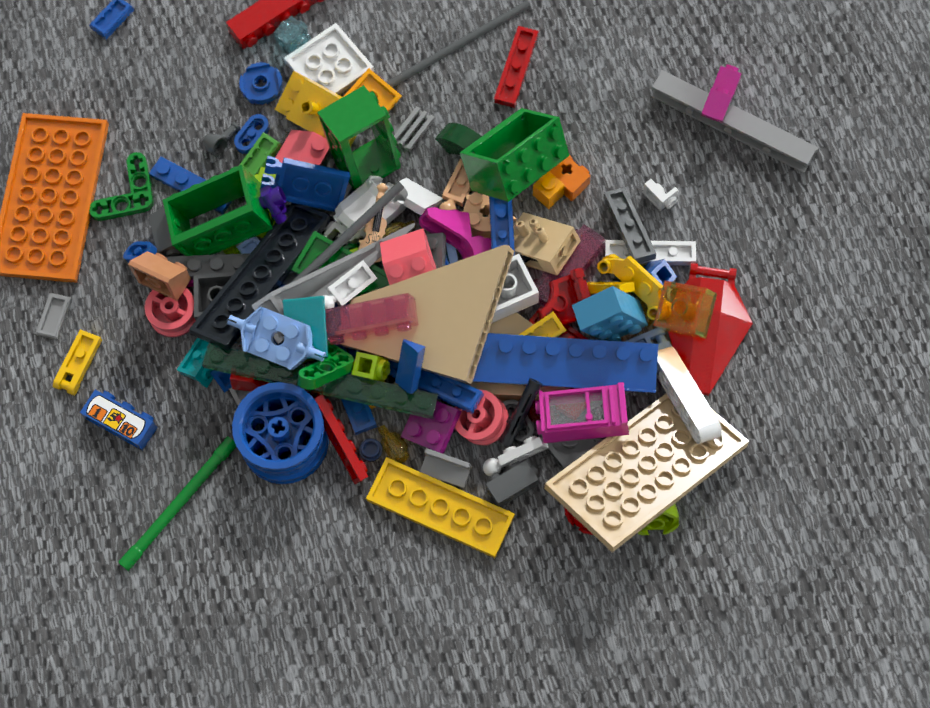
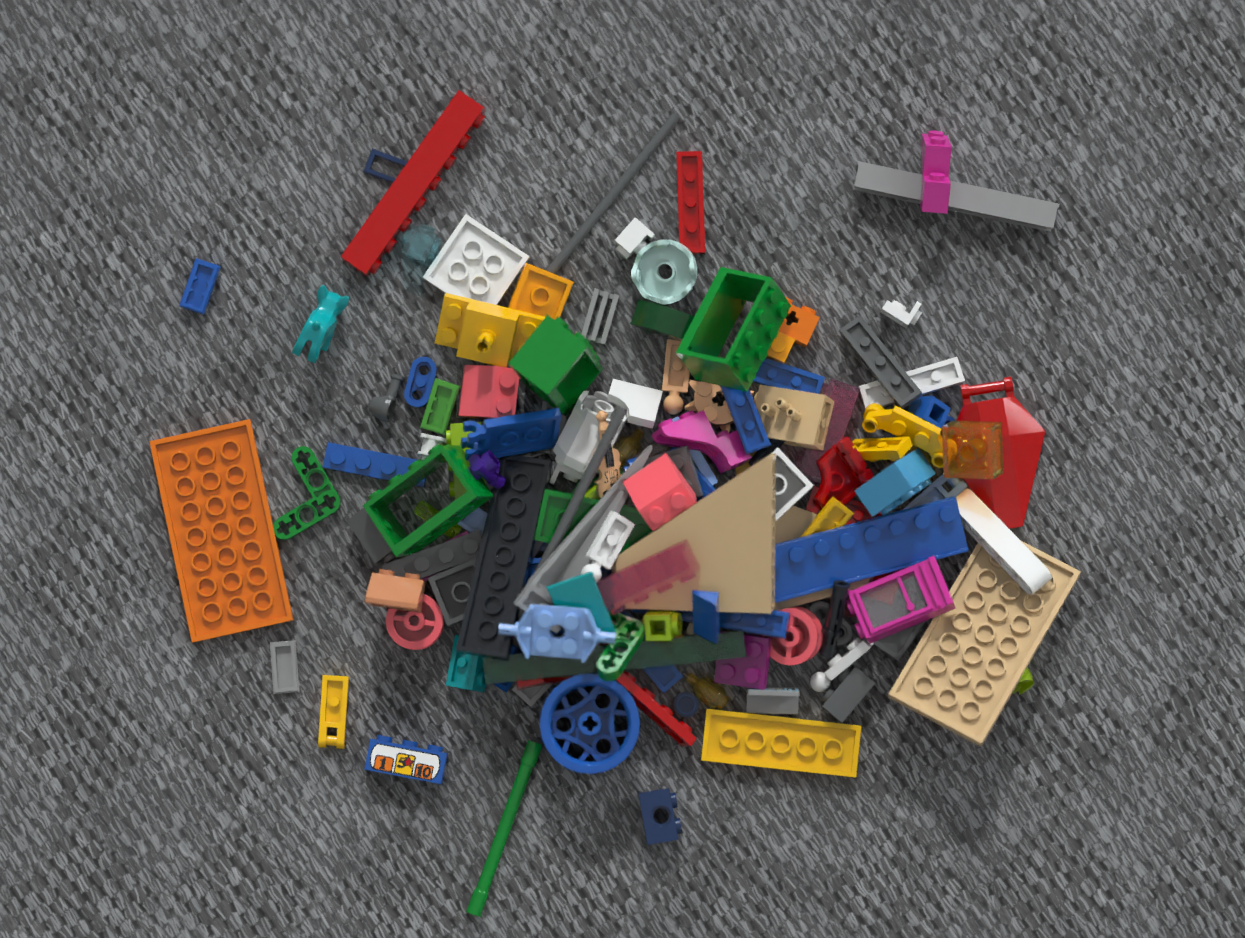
camera: 20 degrees left, 15 degrees up
(138, 248) = (354, 567): blue plate -> none
(189, 64) = (321, 323): none -> teal animal
(251, 78) = (420, 321): blue plate -> none
(310, 520) = (656, 831): none -> dark blue brick
(460, 77) = (633, 238): none -> white brick
(475, 93) = (647, 277): none -> light aqua plate
(535, 206) = (788, 377): none -> blue plate

